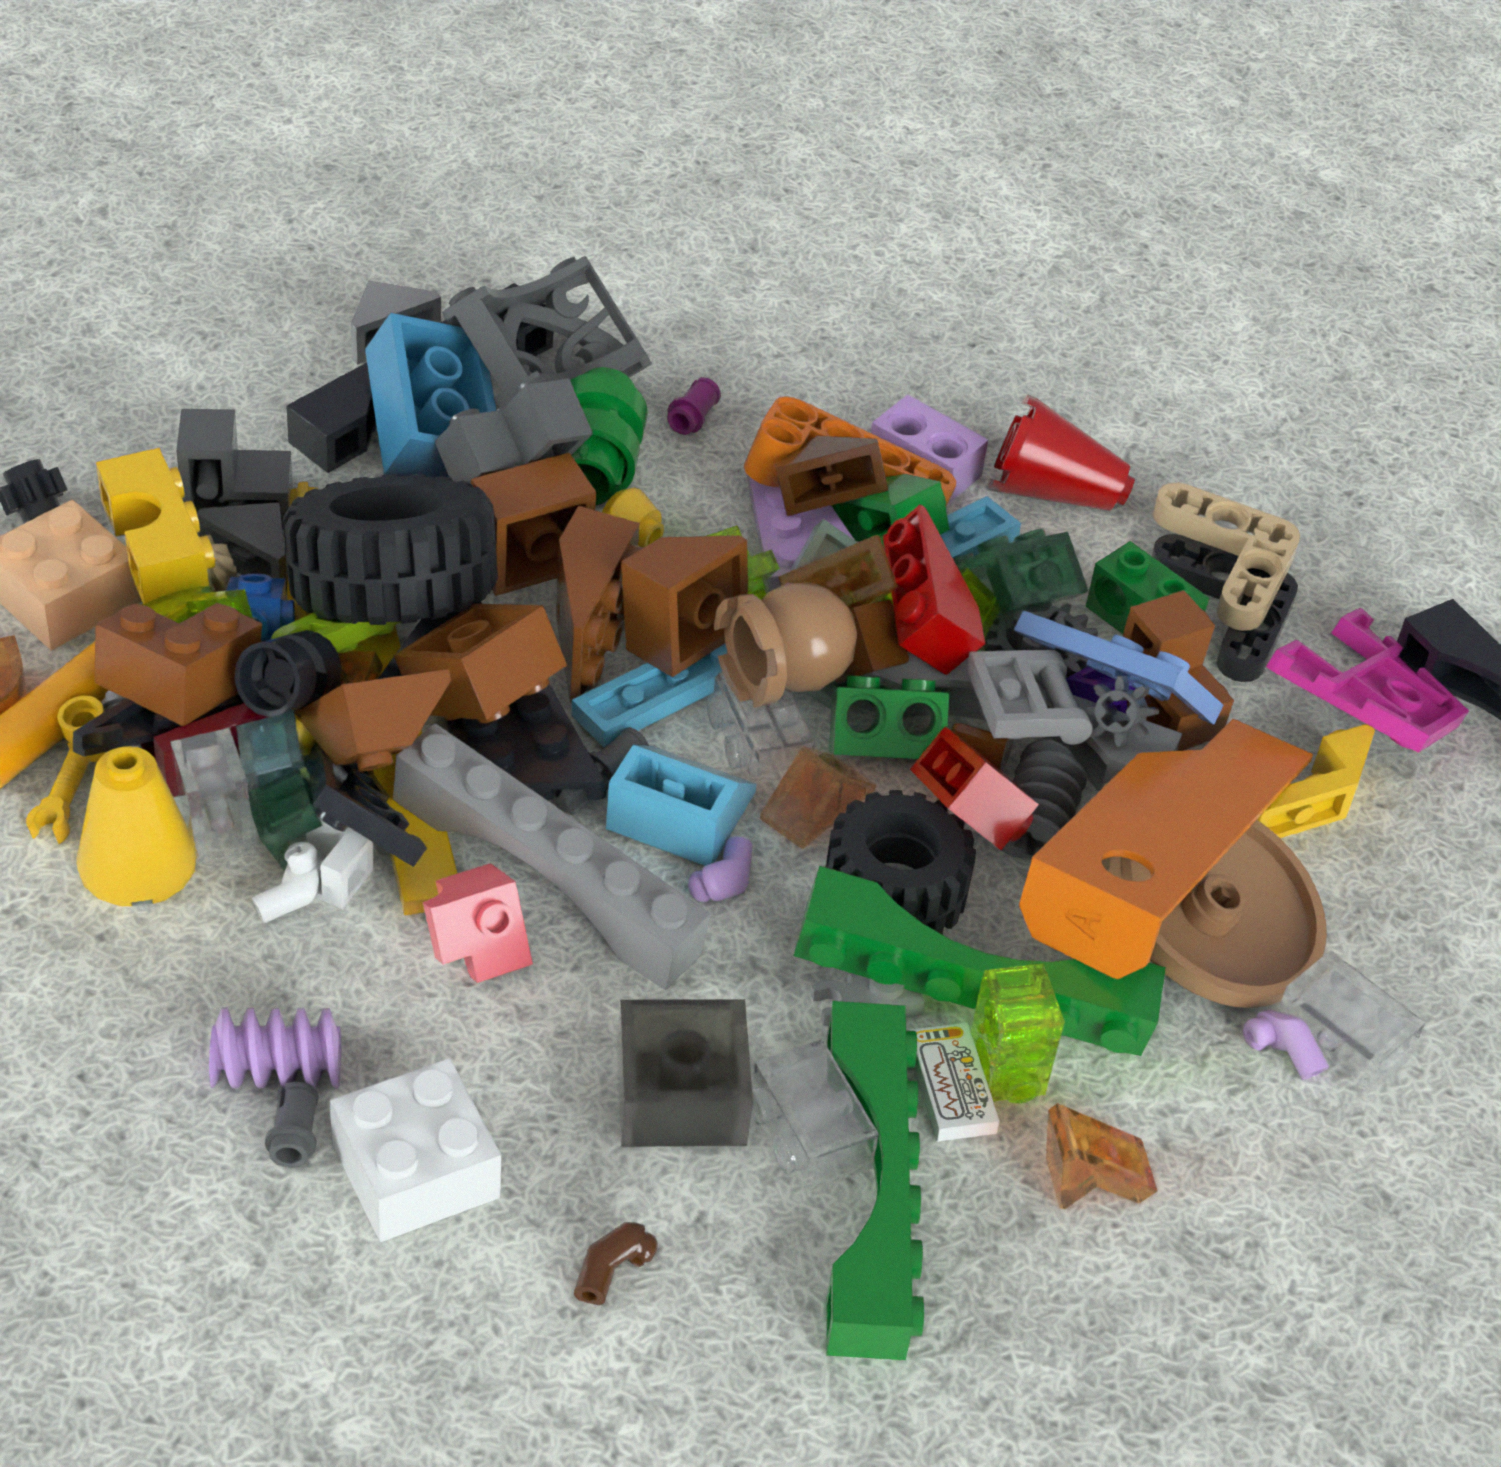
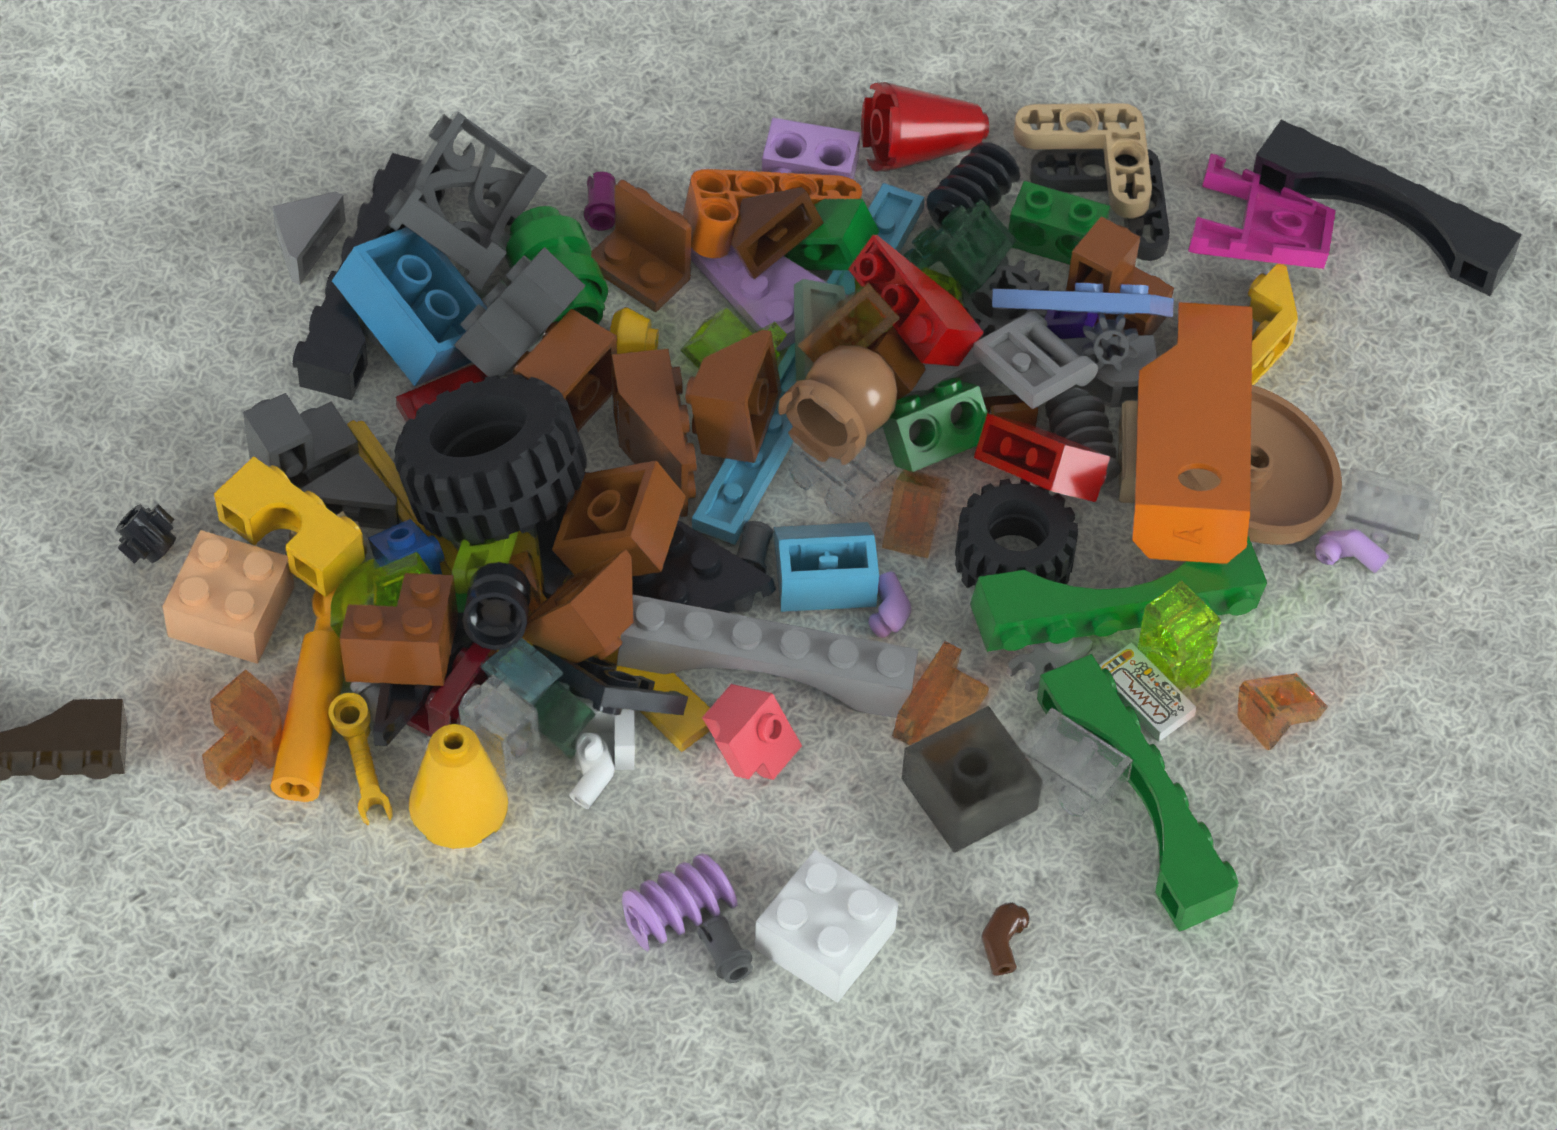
camera: 25 degrees left, 10 degrees up
(701, 467) = (647, 250): none -> dark orange bracket
(713, 969) = (939, 698): none -> clear orange panel
(1093, 526) = (981, 174): none -> black piece

